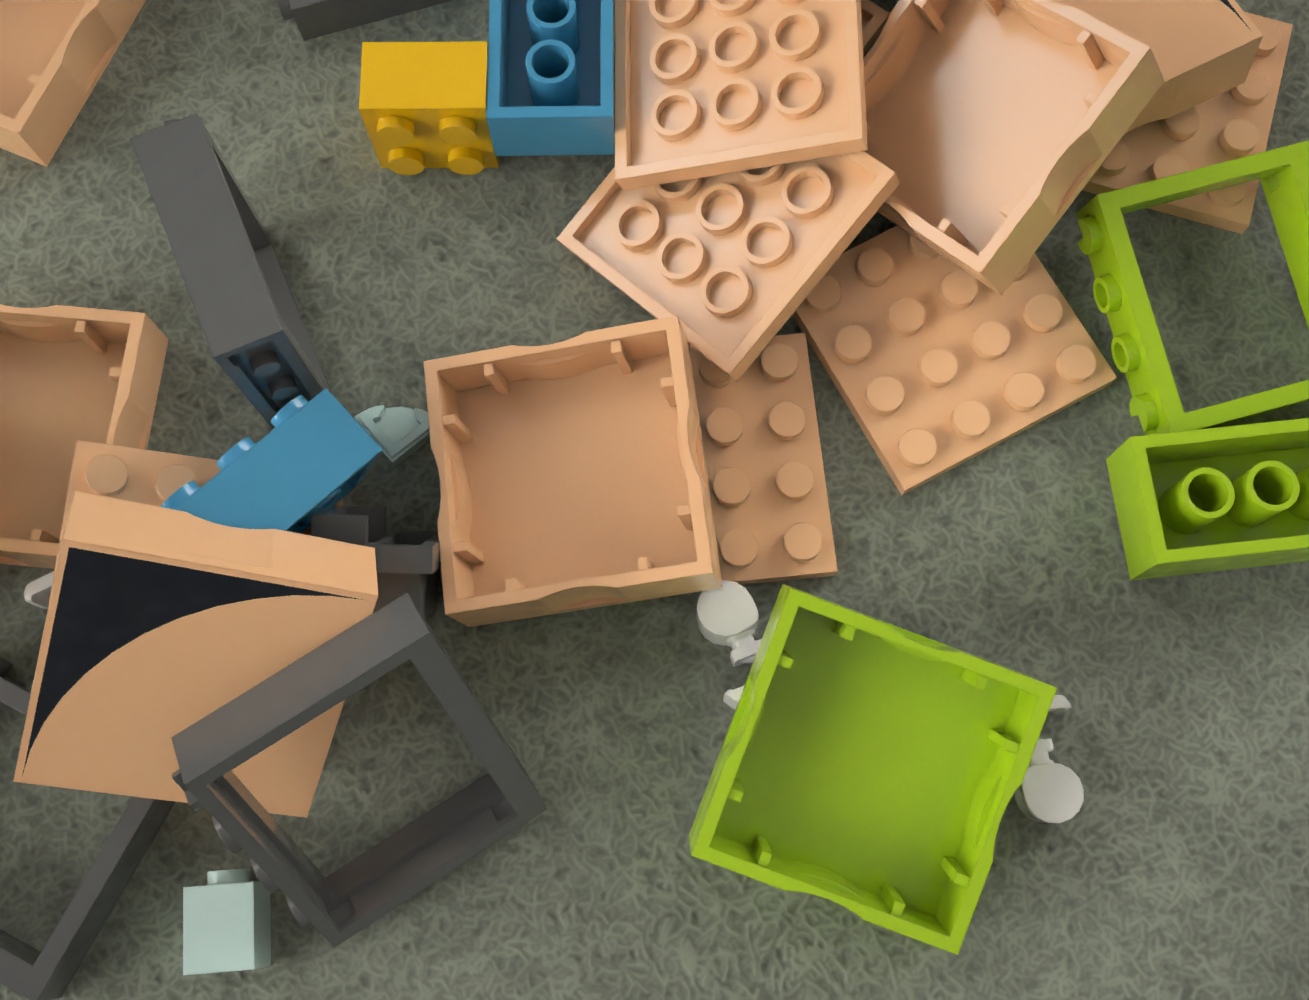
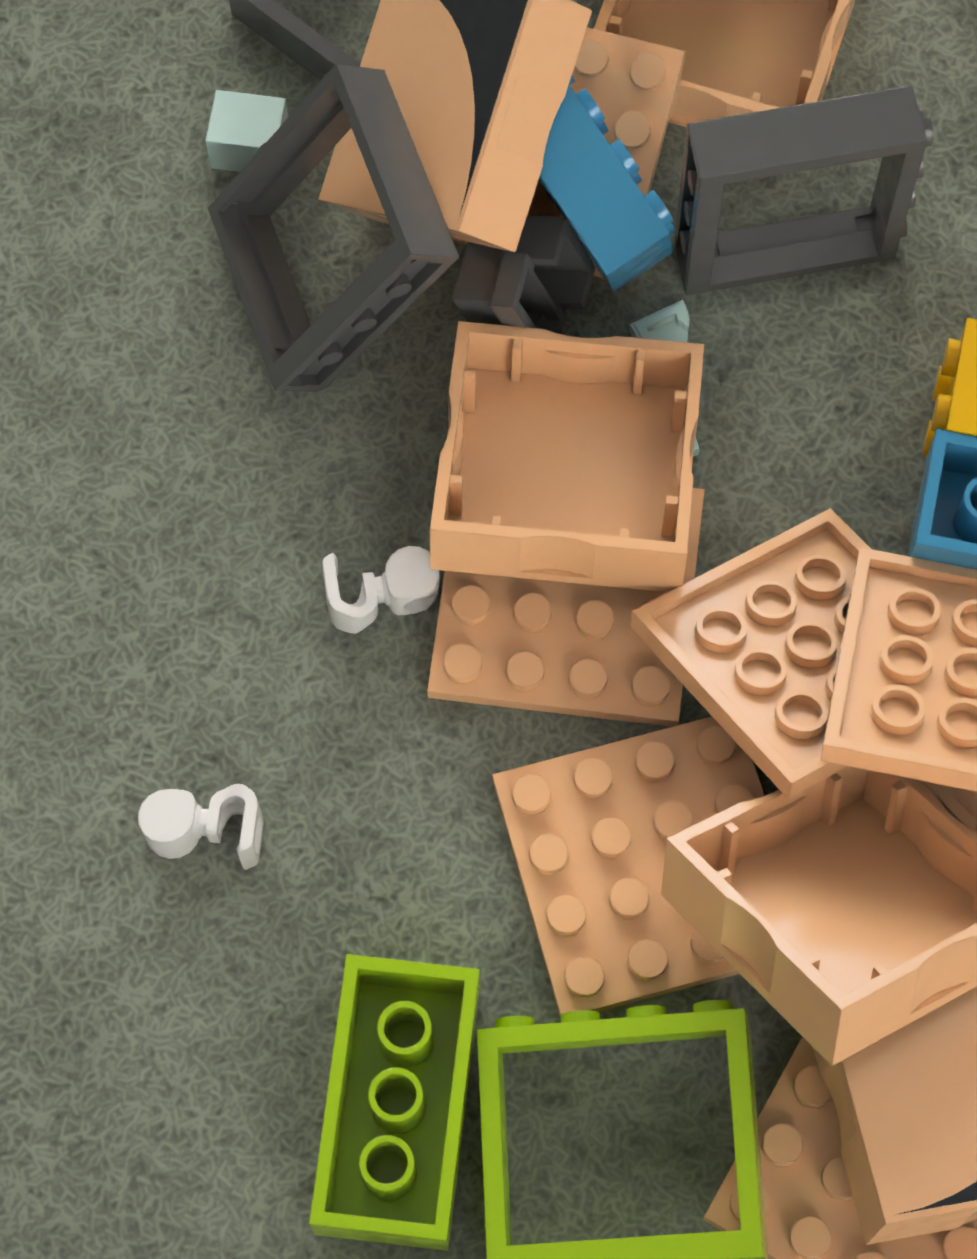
camera: 105 degrees right, 5 degrees down
(869, 768) = (235, 647): lime tile -> none

